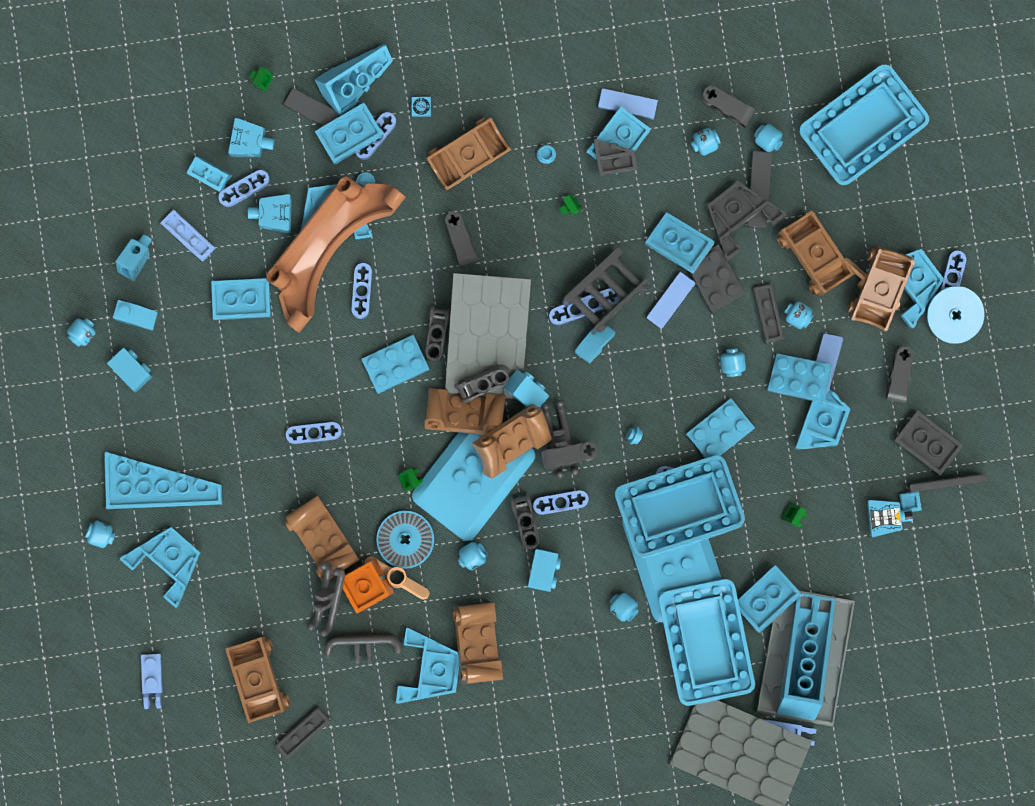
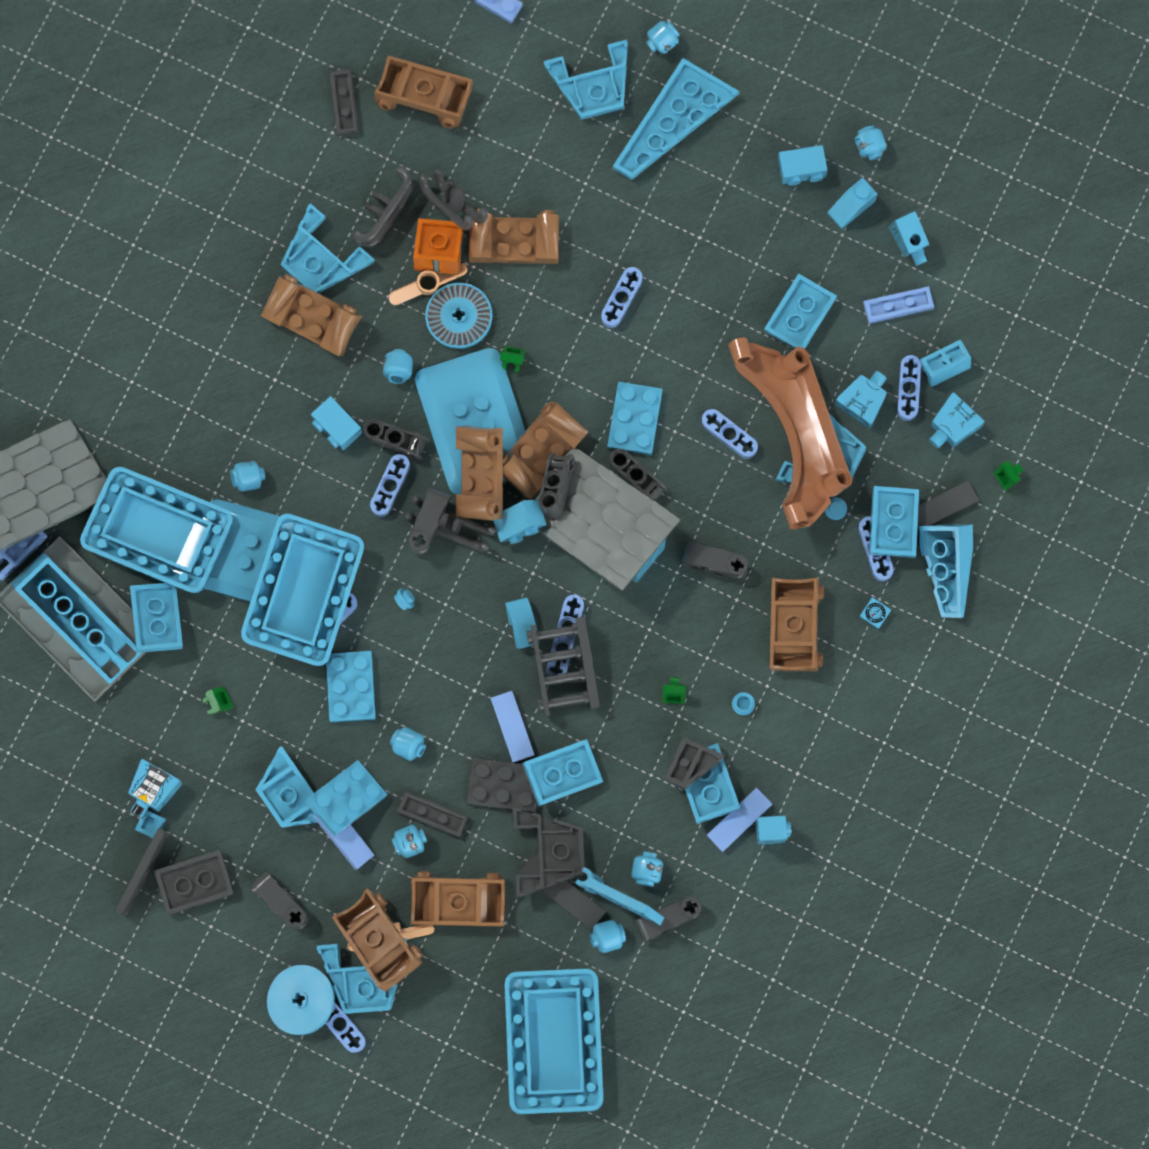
camera: 130 degrees right, 5 degrees down
(621, 74) = (772, 830): none -> medium azure brick
(740, 144) = (596, 885): none -> medium azure tile

